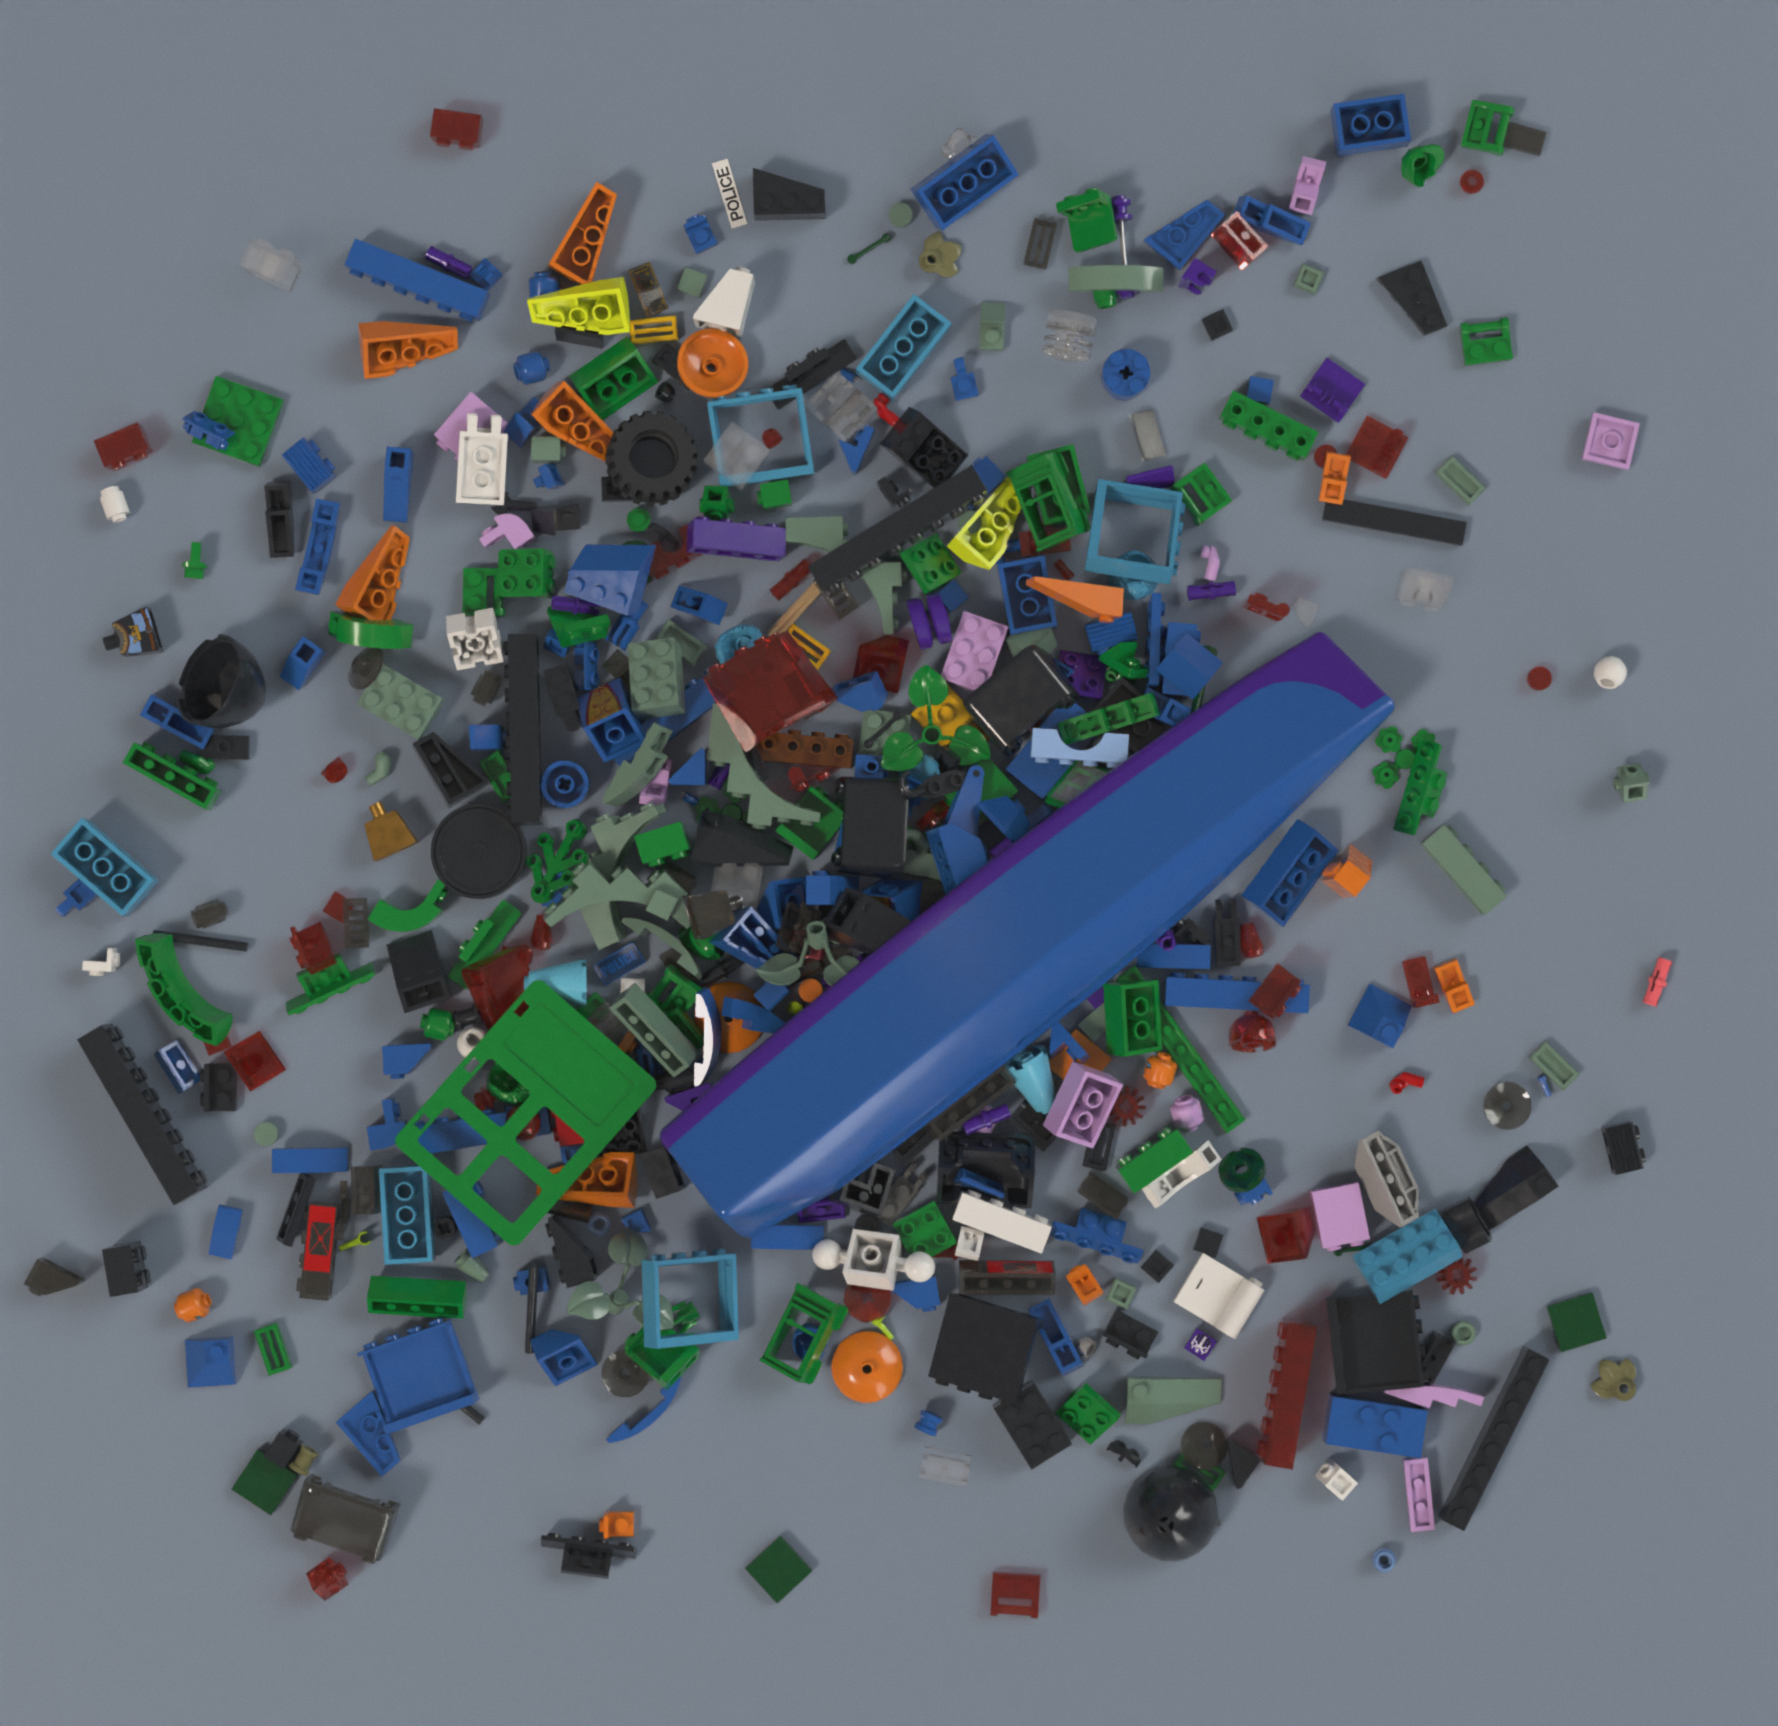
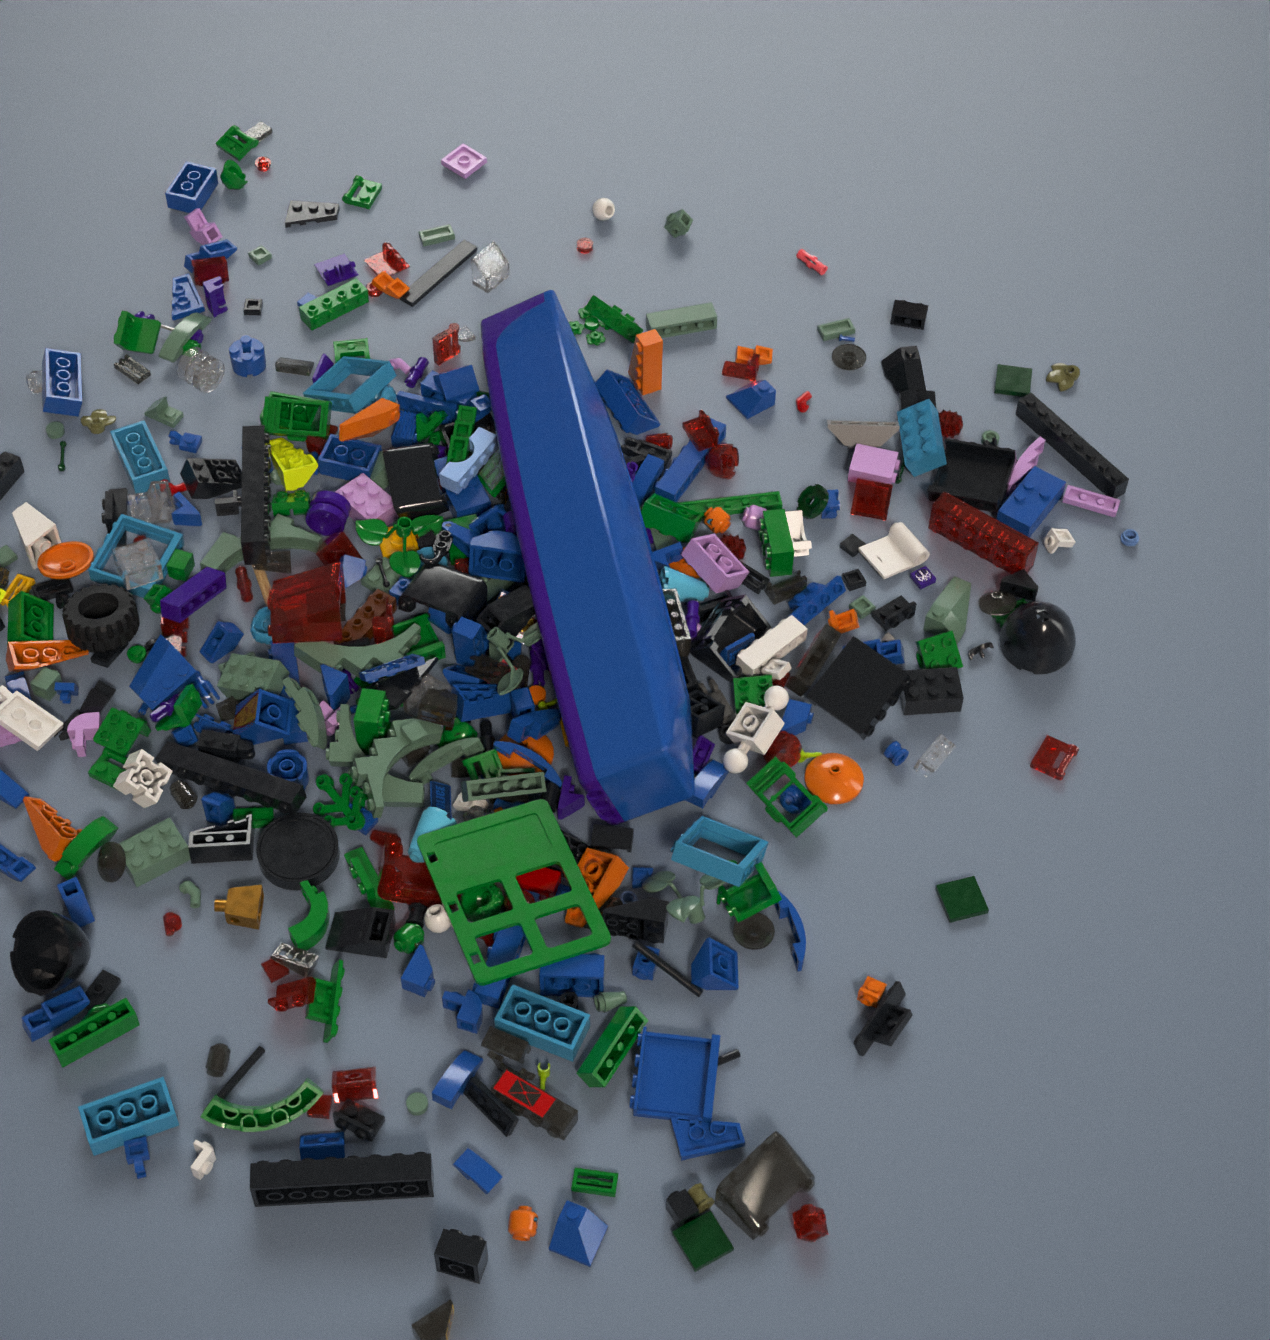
camera: 65 degrees left, 35 degrees down
(739, 829) = (391, 668): none -> blue wing

